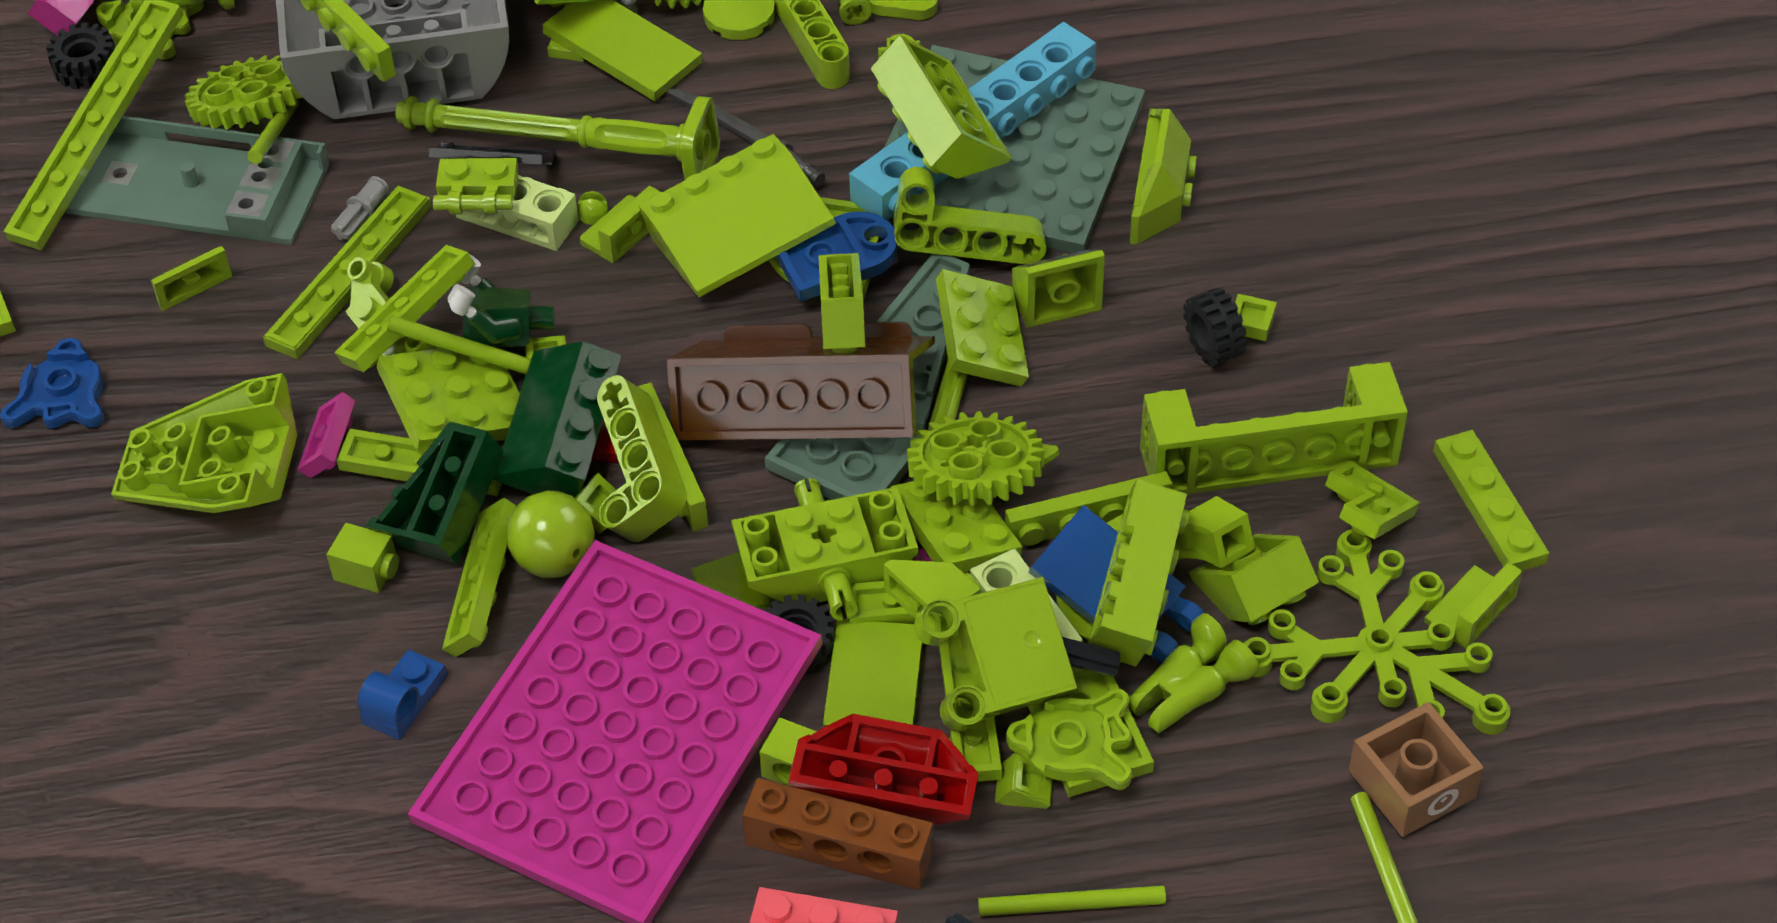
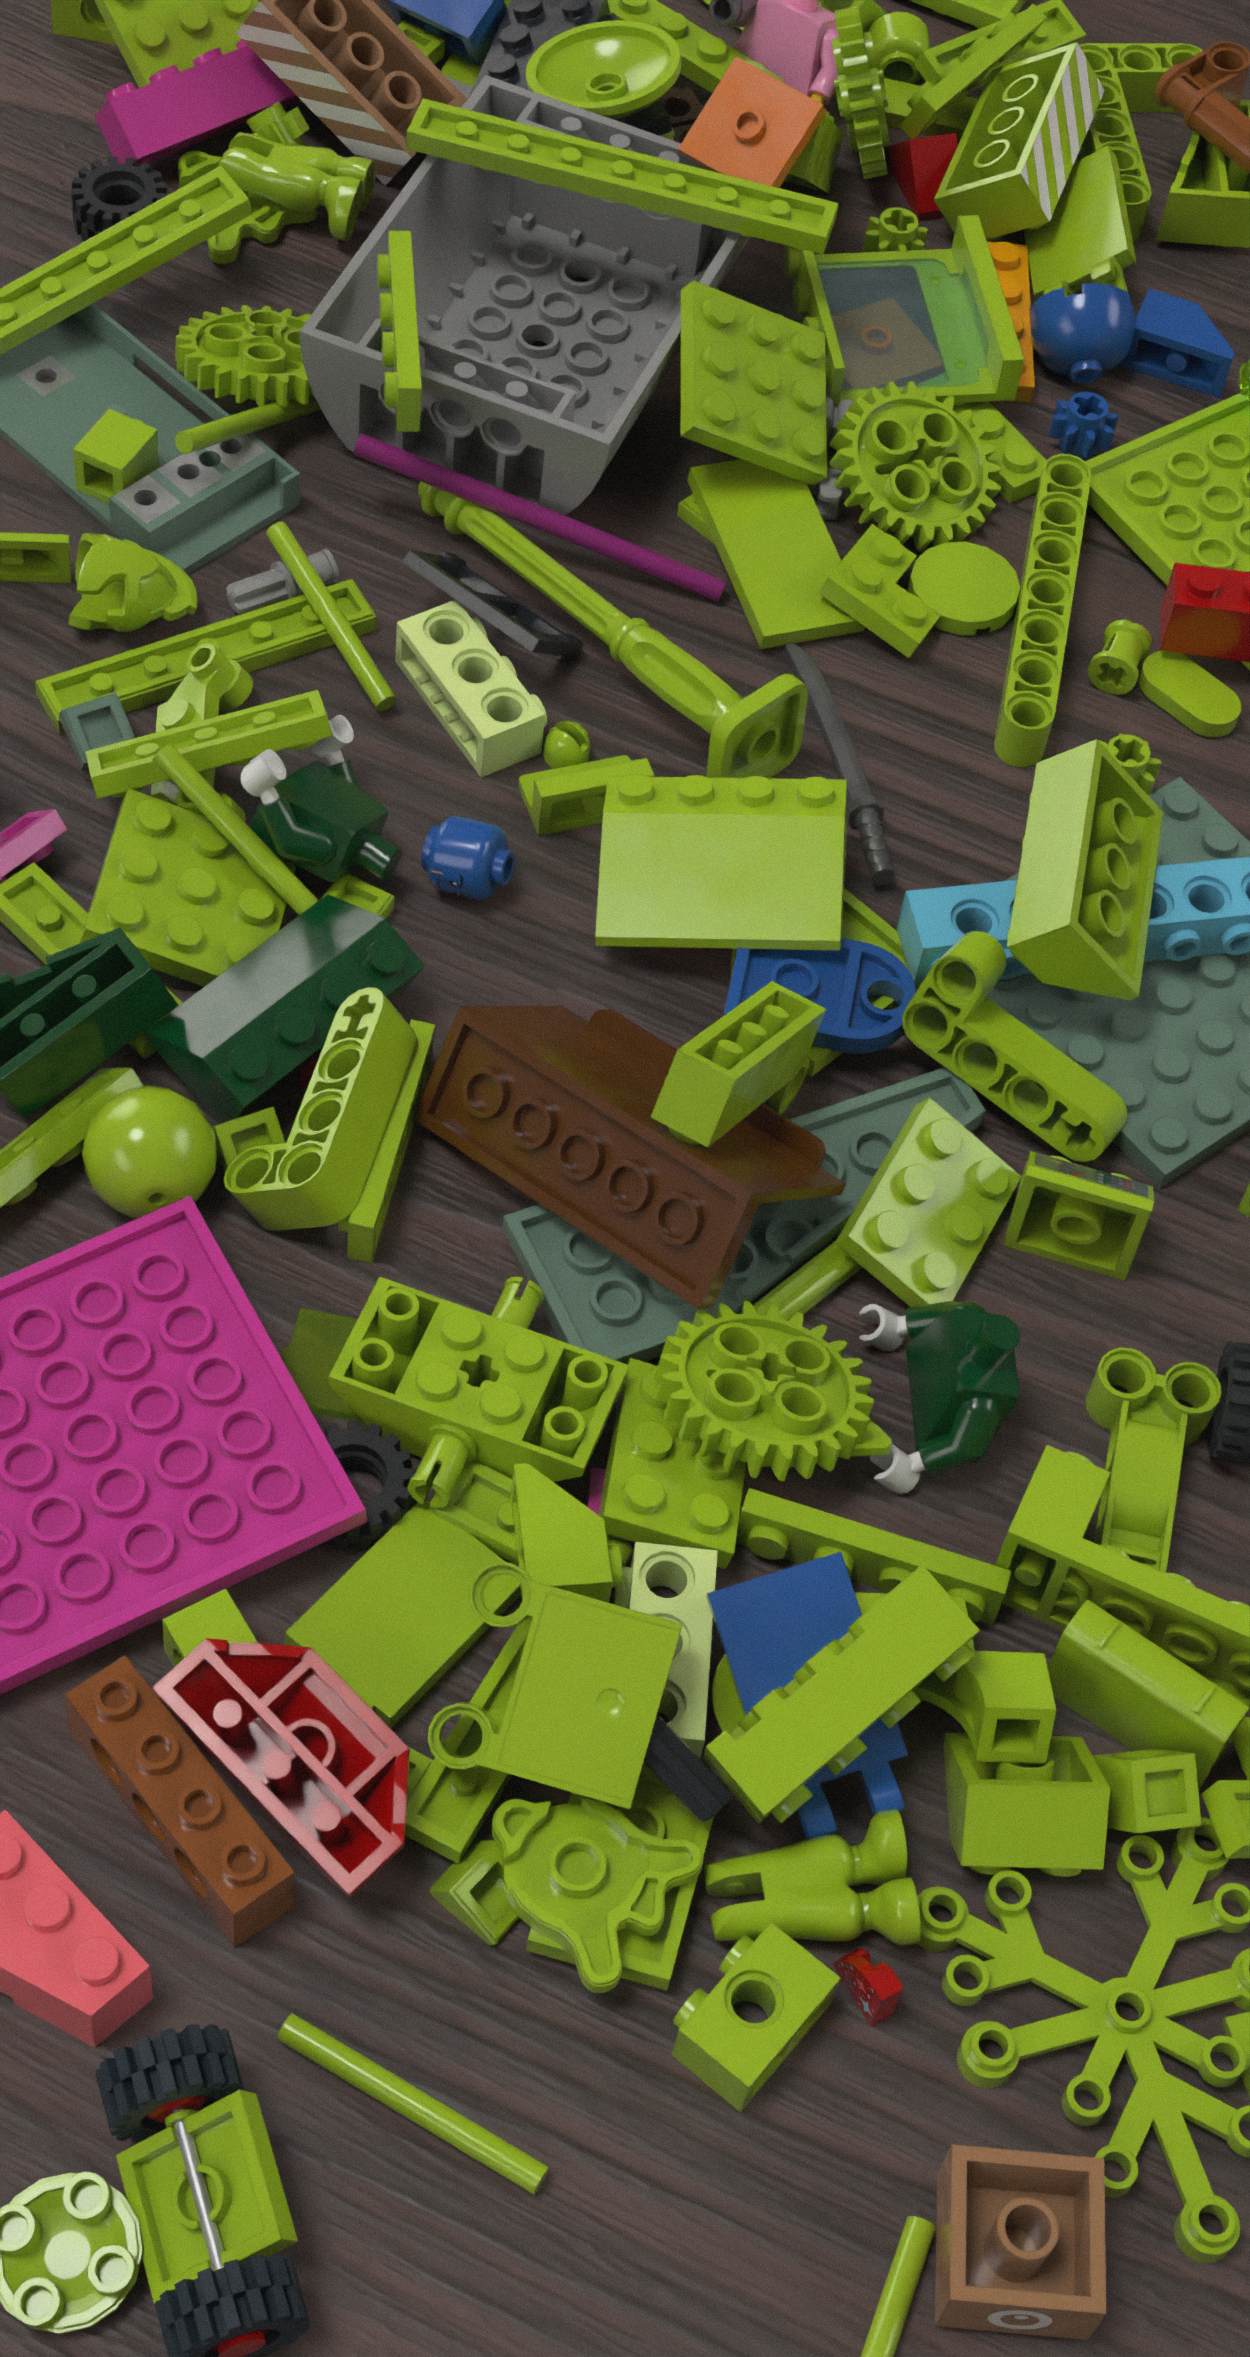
camera: 25 degrees right, 5 degrees up
(208, 192) = (114, 455): none -> lime brick
(273, 257) = (127, 585): none -> lime helmet
(321, 342) = (95, 725): none -> sand green tile
(406, 209) = (331, 616): none -> lime bar
(476, 185) = (435, 623): lime plate -> none
(480, 94) = (539, 517): none -> magenta piece
(591, 292) = (467, 857): none -> blue head
(690, 37) = (869, 592): none -> lime plate
(1064, 398) = (958, 1383): none -> dark green torso
(1175, 365) = (1146, 1447): none -> lime piece
(1205, 776) = (742, 2055): none -> lime brick
(1249, 706) = (872, 1987): none -> red tile
(1279, 489) = (1141, 1690): none -> lime piece
(1317, 527) = (1151, 1789): none -> lime brick

